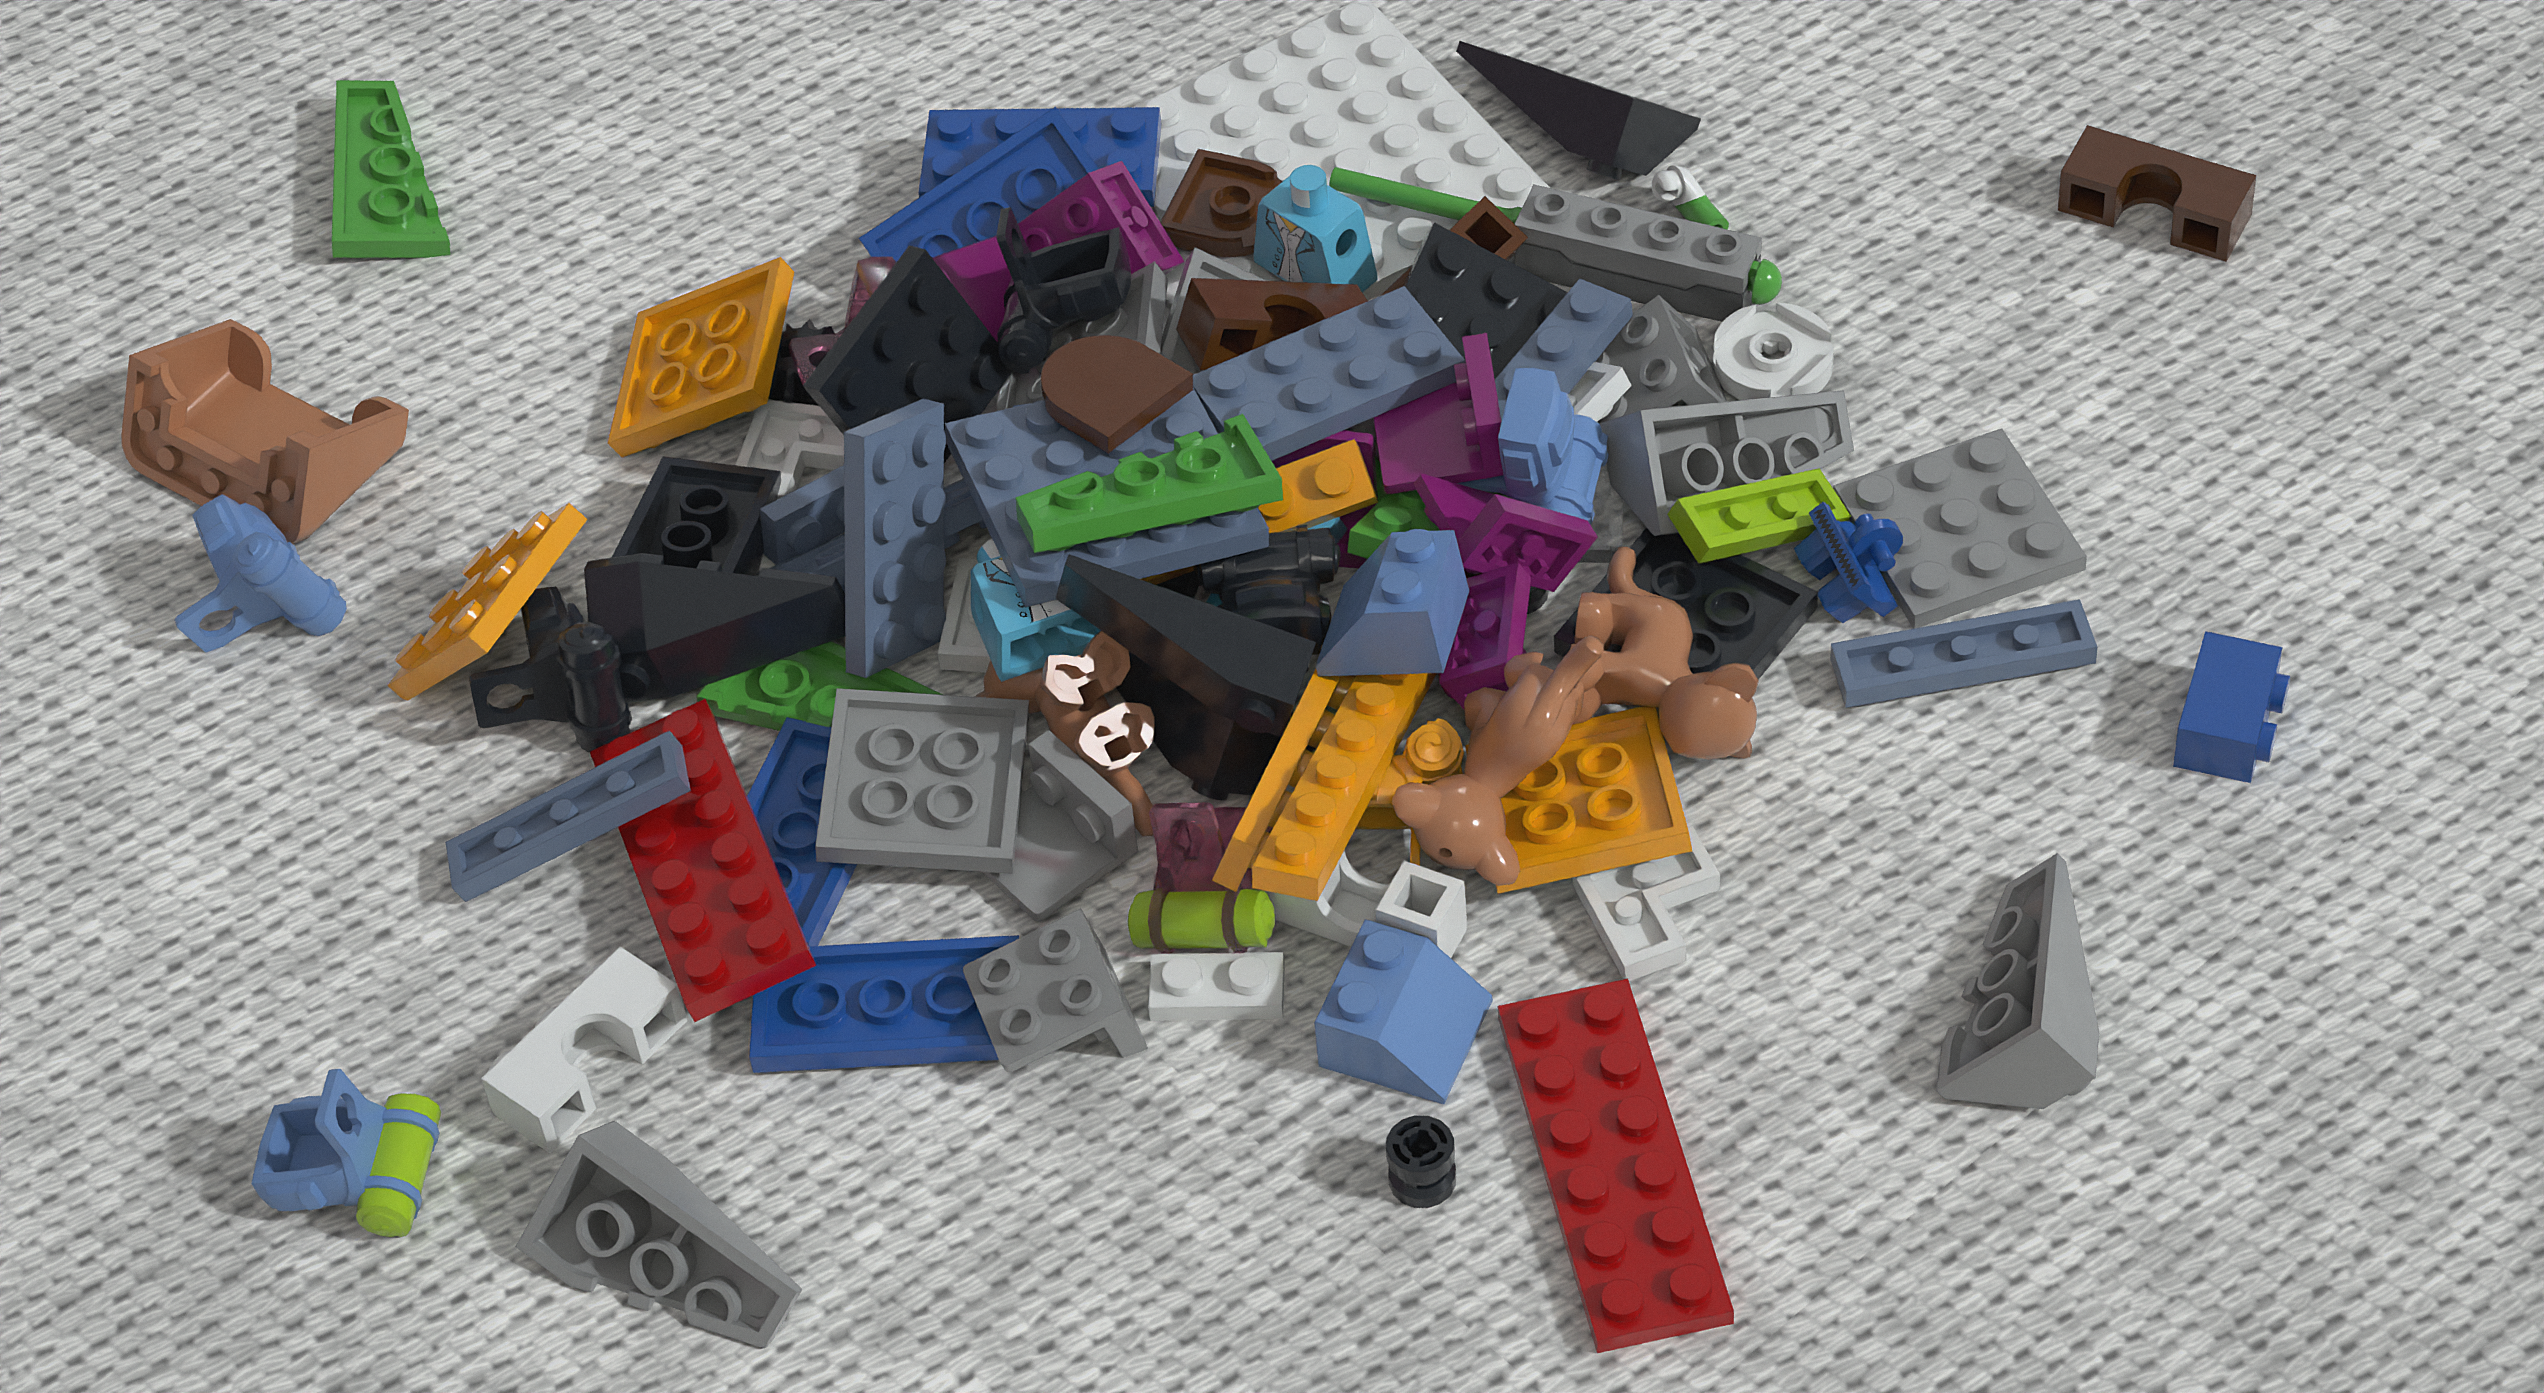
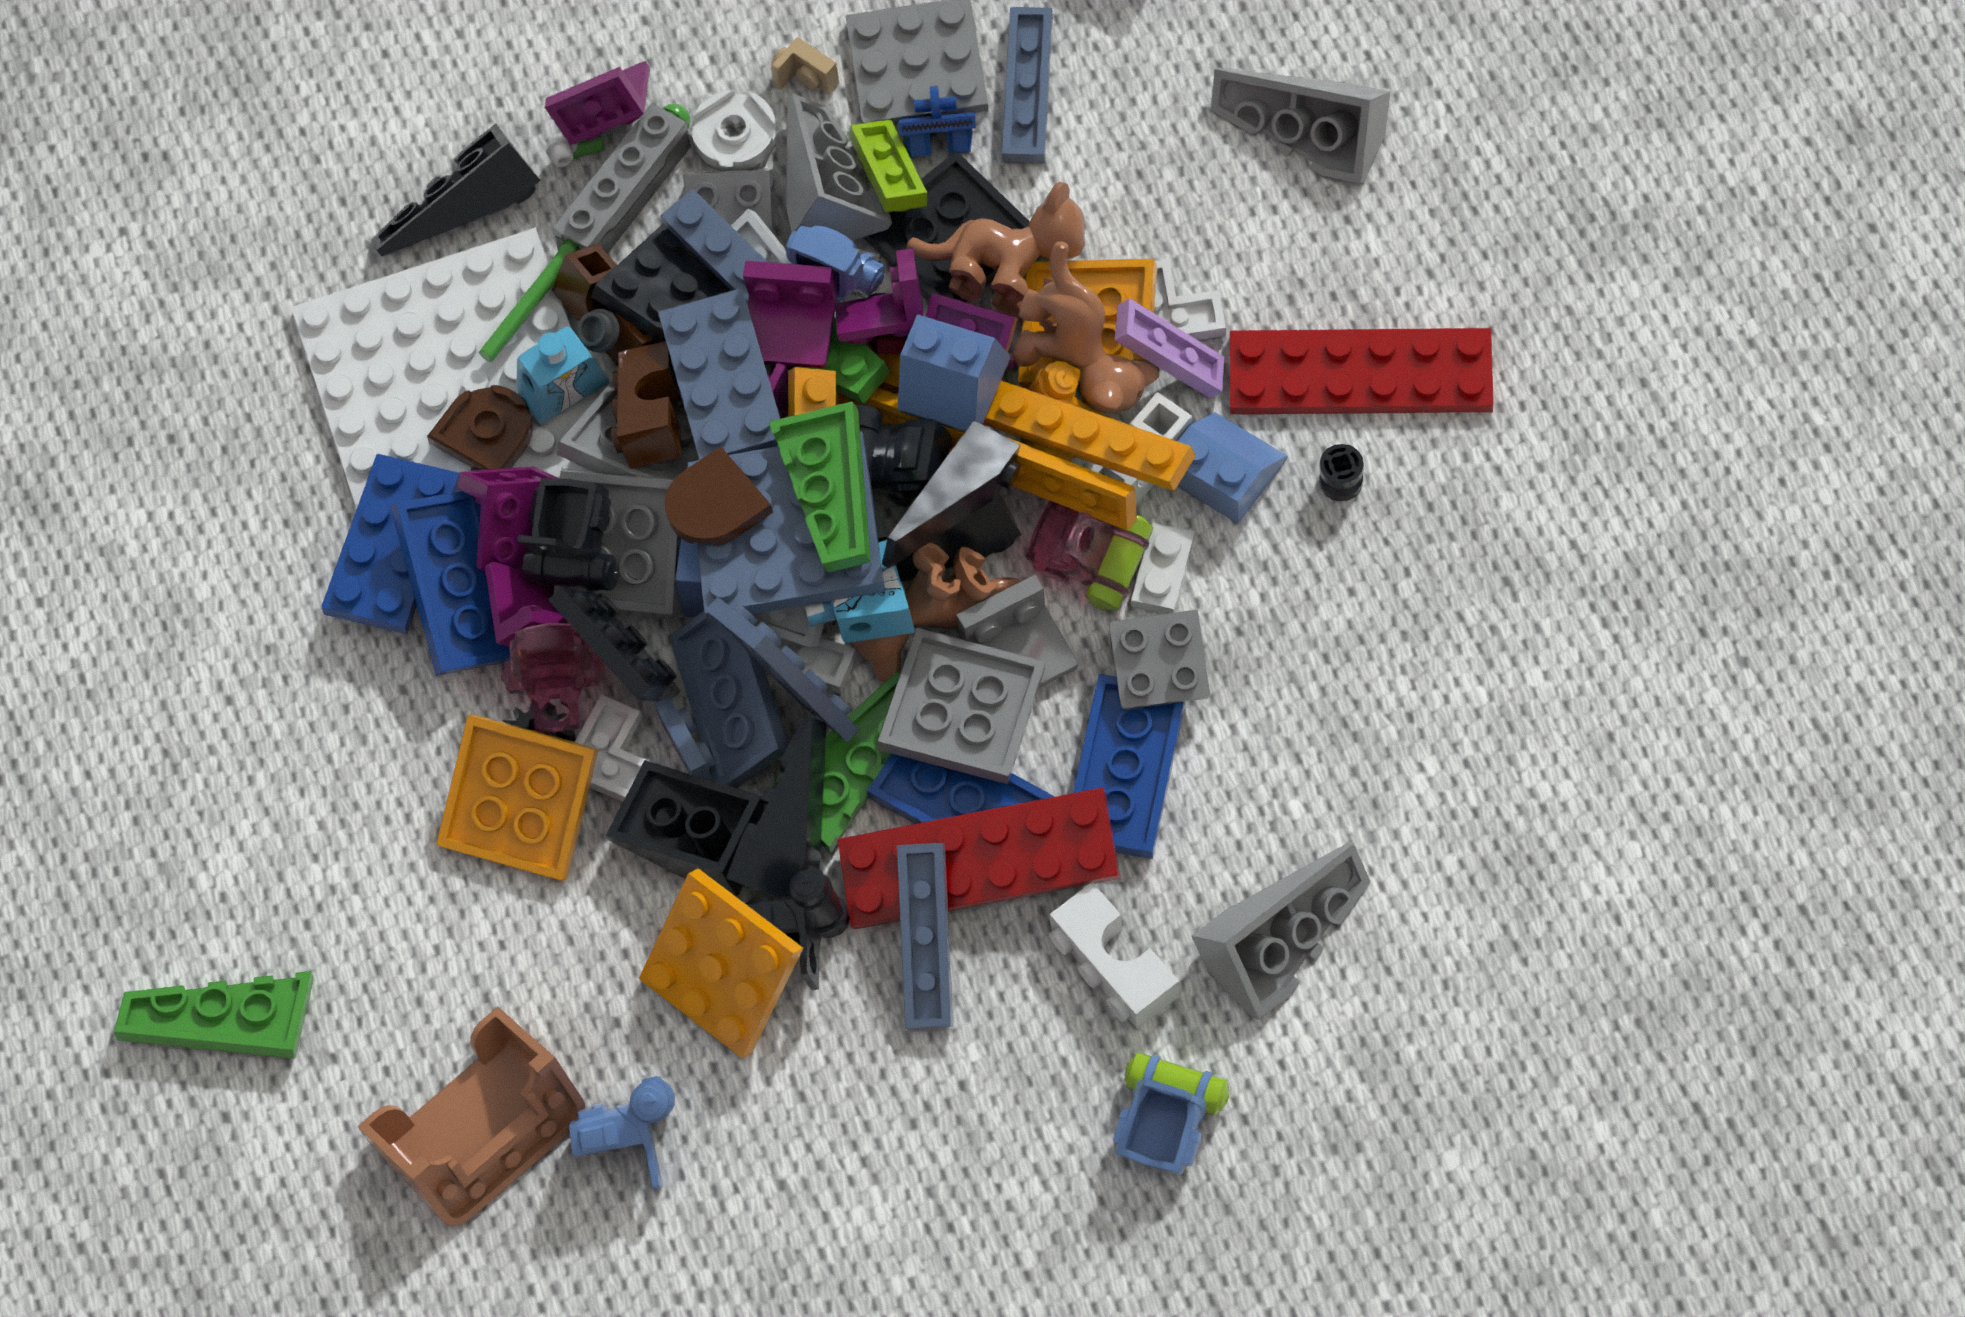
camera: 75 degrees left, 15 degrees up
(1384, 258) = (598, 330): none -> dark grey plate
(1546, 886) = (1169, 348): none -> lavender plate
(1731, 180) = (600, 103): none -> magenta bracket
(1899, 399) = (807, 63): none -> tan bracket

